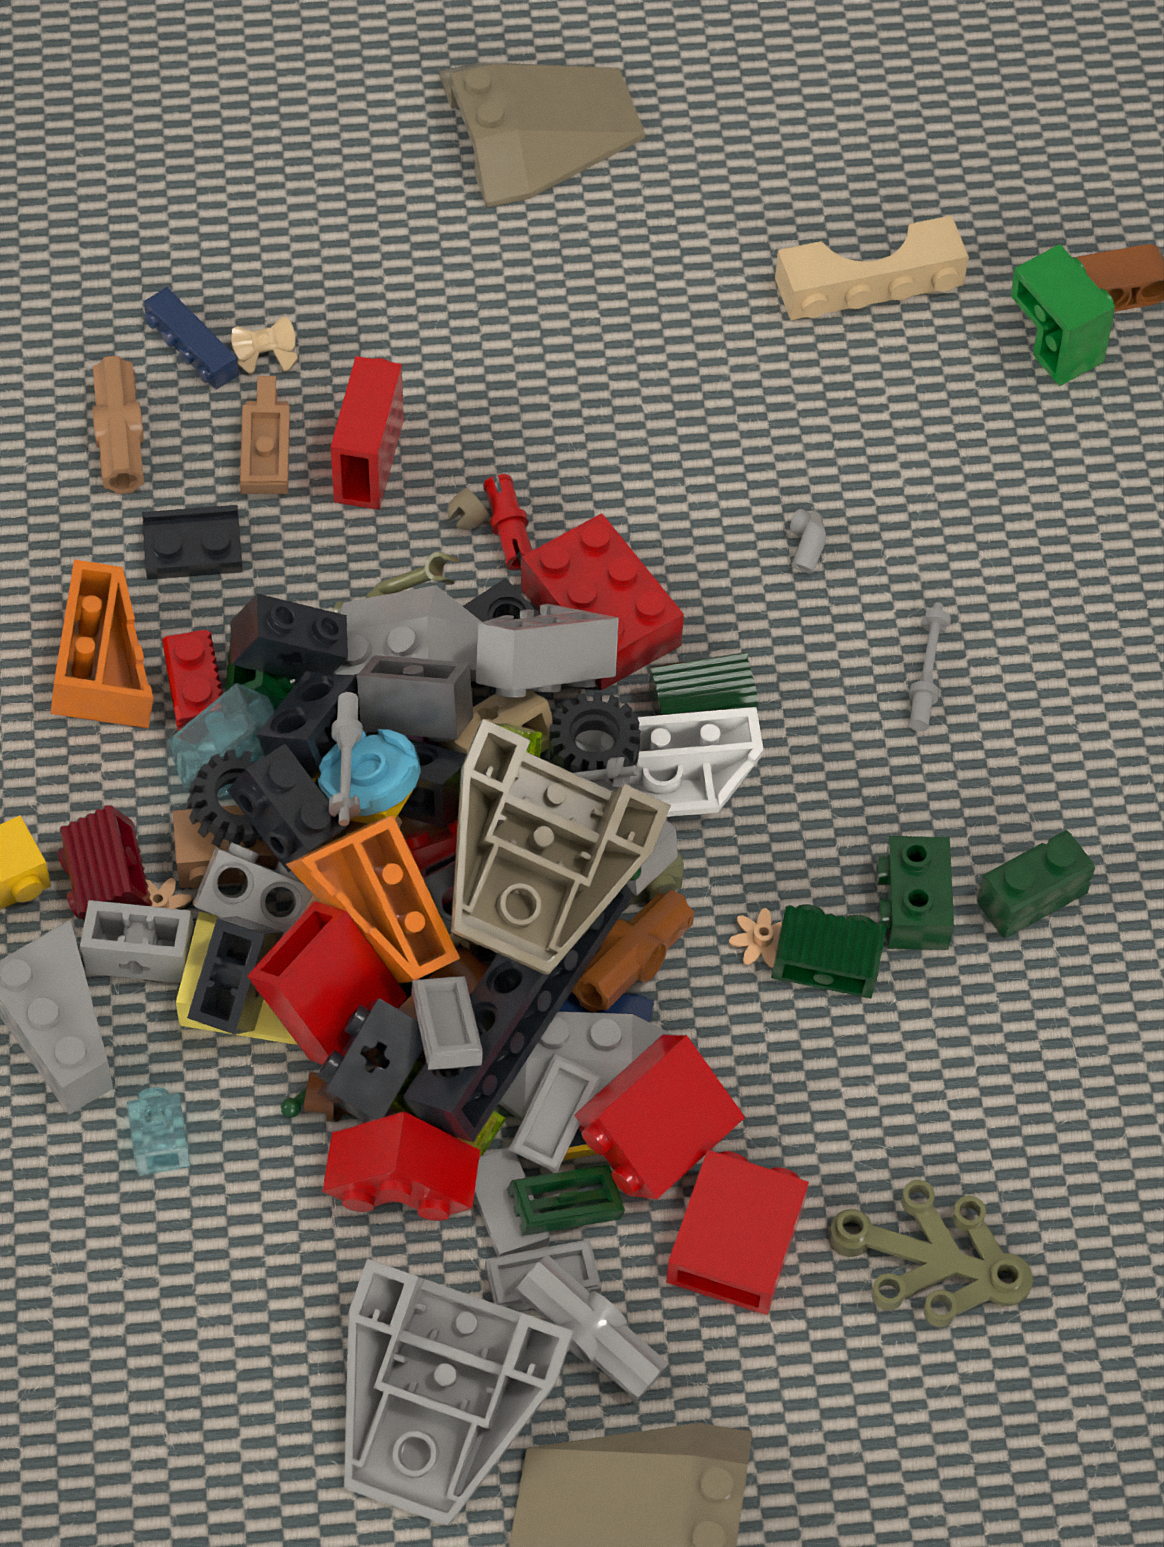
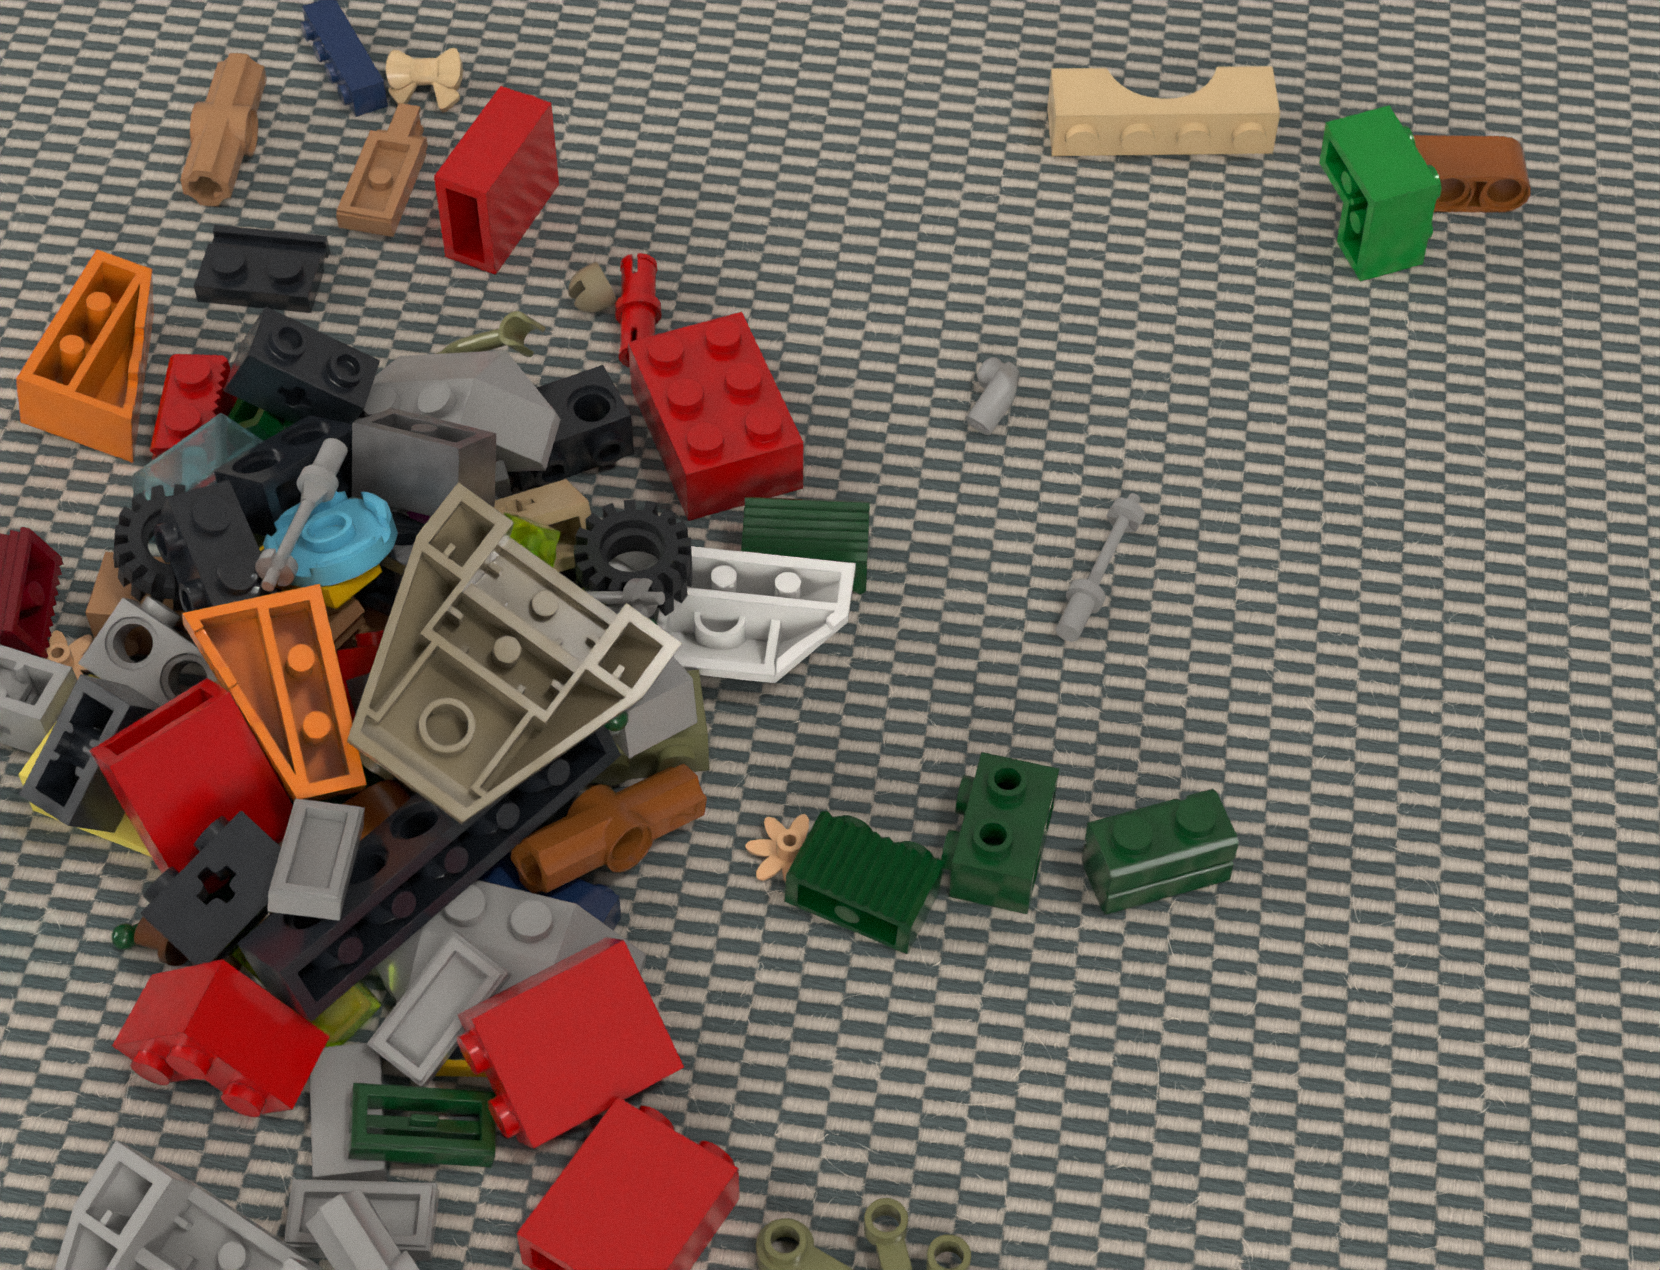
camera: 15 degrees right, 5 degrees down
(546, 650) = (605, 445): light grey wedge -> none

